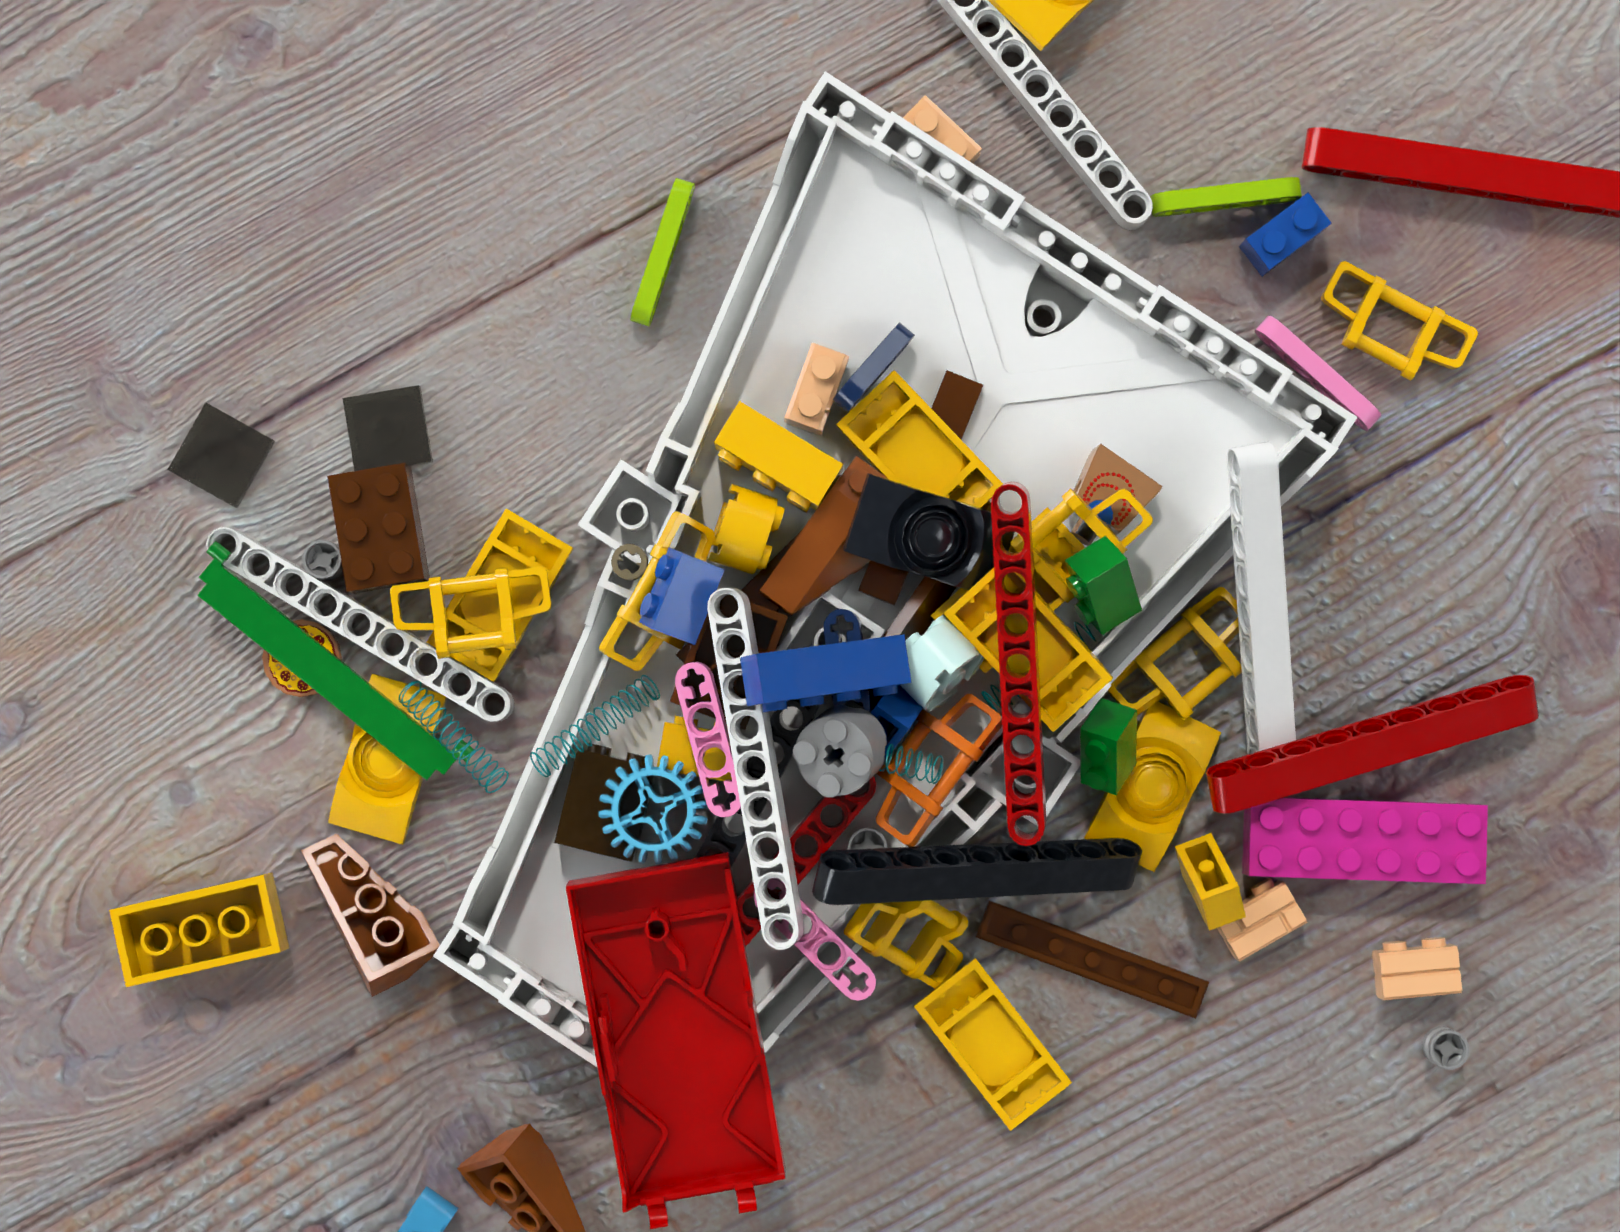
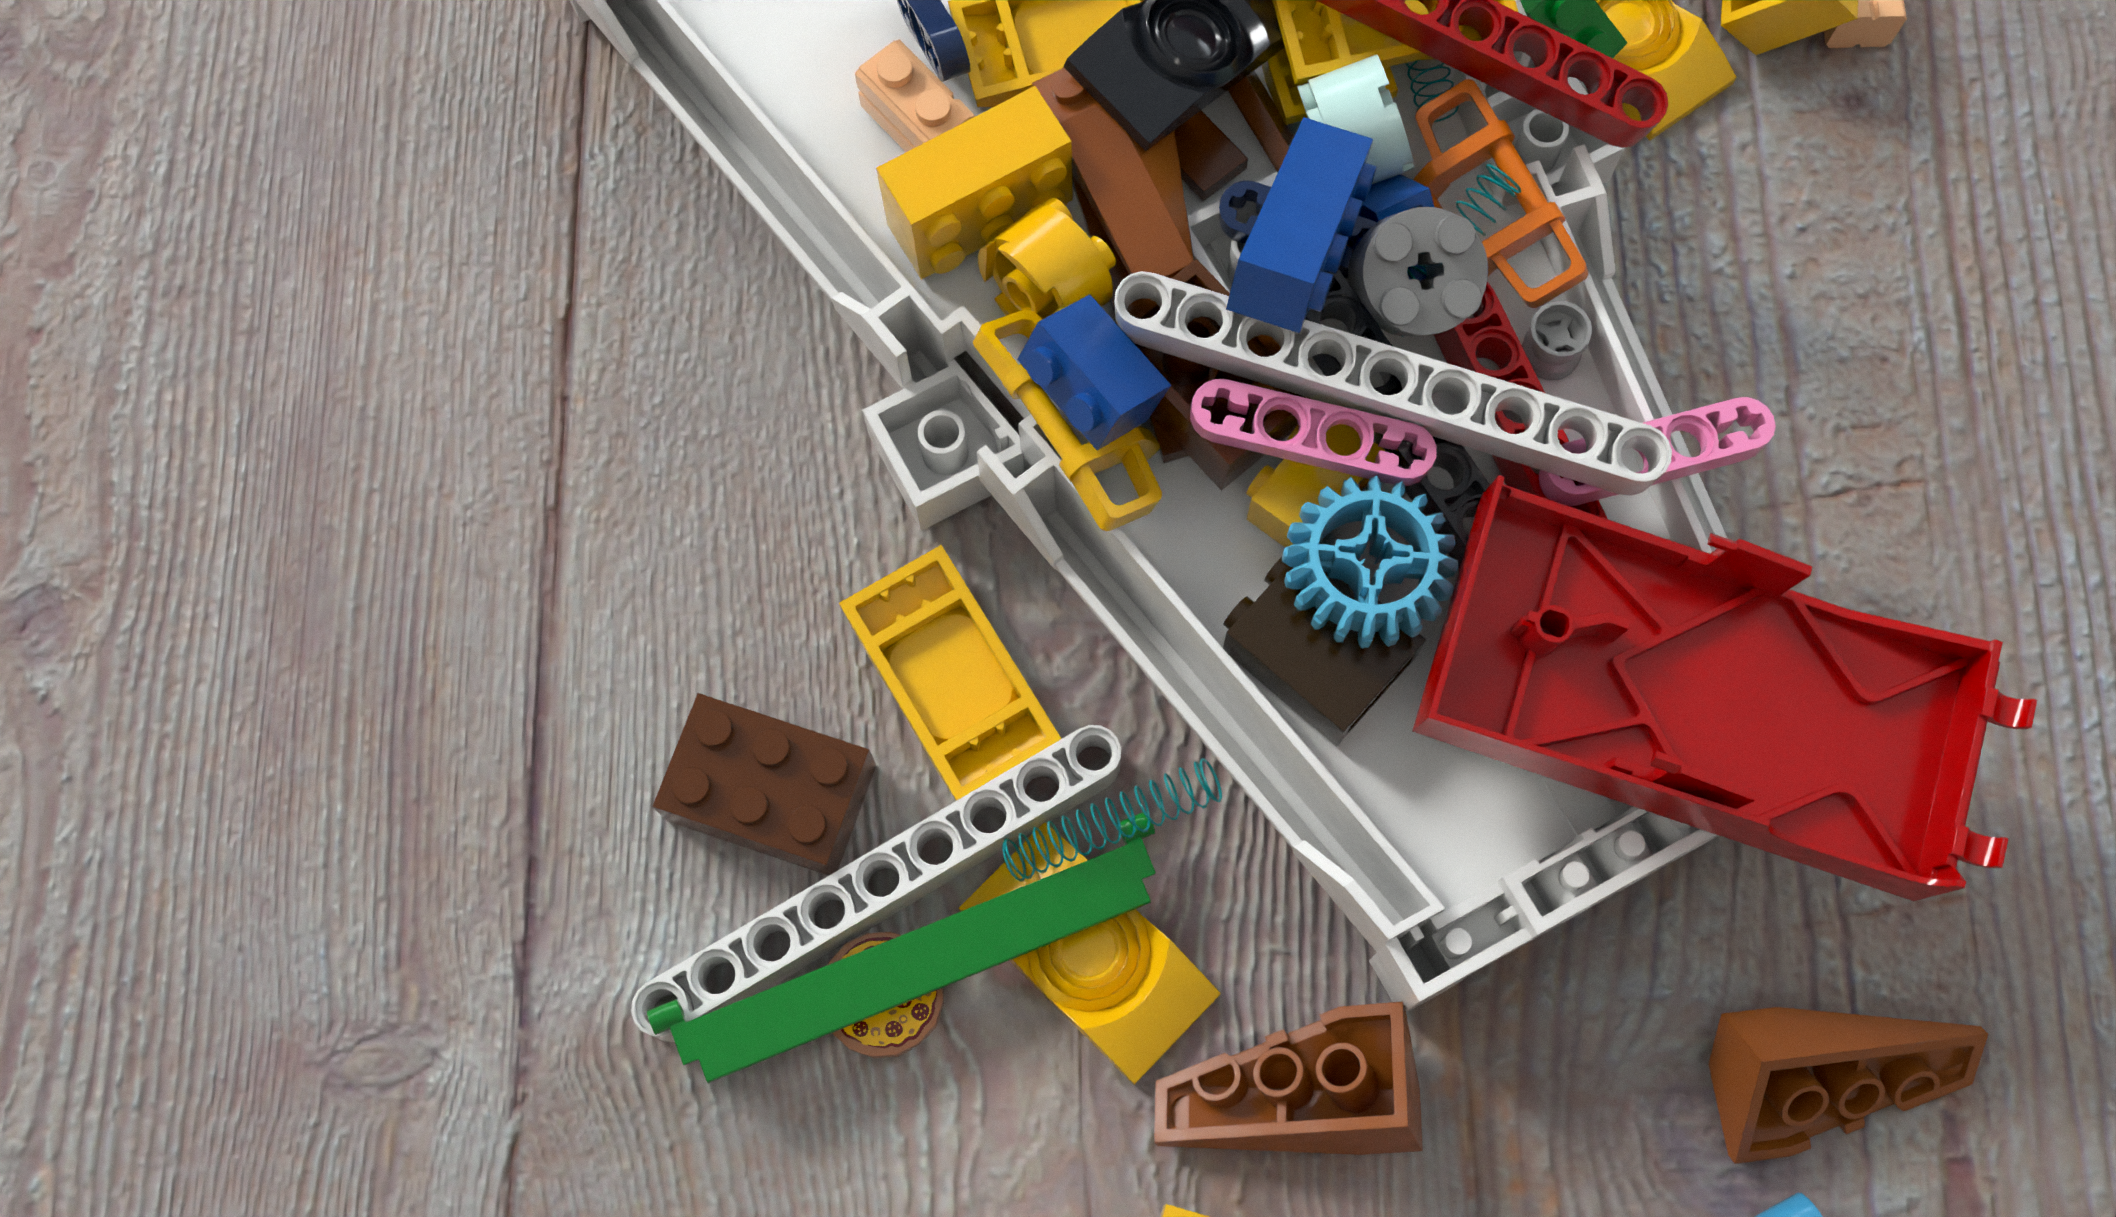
camera: 60 degrees left, 15 degrees down
(221, 455) = (538, 957): clear smoke tile -> none
(318, 560) = (758, 876): light grey wheel -> none
(388, 428) = (637, 709): clear smoke tile -> none
(439, 588) = (932, 652): yellow bar -> none
(626, 573) = (992, 420): dark tan bush -> none
(627, 693) = (1203, 559): teal piece -> none
(662, 252) = (634, 252): lime beam -> none
(935, 933) = (1697, 366): yellow bar -> none
(975, 871) = (1650, 236): black beam -> none
(992, 1044) = (1880, 360): yellow slope -> none
(1092, 959) = (1813, 200): reddish brown tile -> none

